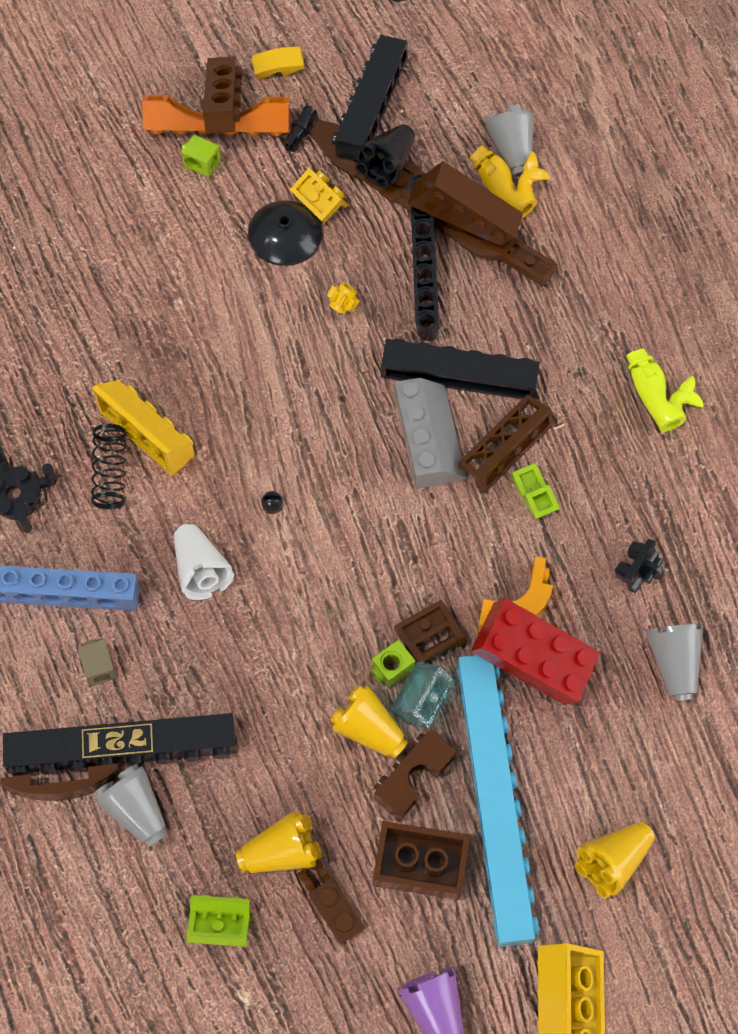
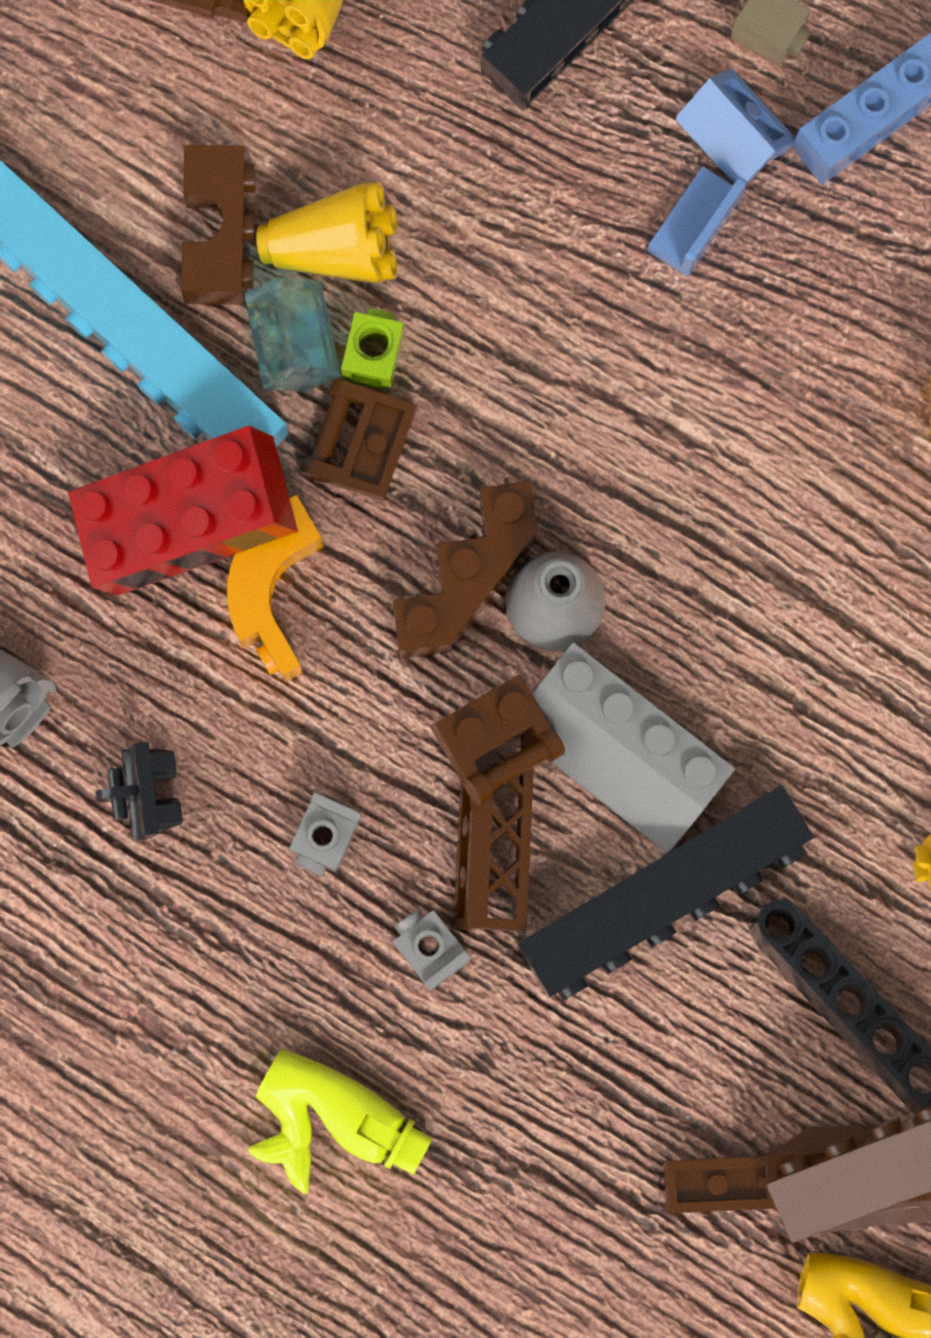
camera: 135 degrees right, 15 degrees up
(153, 633) = (734, 126): none -> panel
(199, 564) = (768, 267): white cone -> none
(206, 607) = (696, 220): none -> medium blue panel
(272, 506) = (759, 461): black hinge -> none
(405, 505) = (550, 618): none -> light grey cone
(421, 860) = (111, 113): reddish brown brick -> none
(432, 541) = (469, 573): none -> reddish brown brick
(479, 472) = (488, 724): none -> reddish brown plate
(534, 491) = (390, 788): lime slope -> none
(570, 418) = (435, 968): none -> light grey brick
(574, 499) = (328, 814): none -> light grey brick

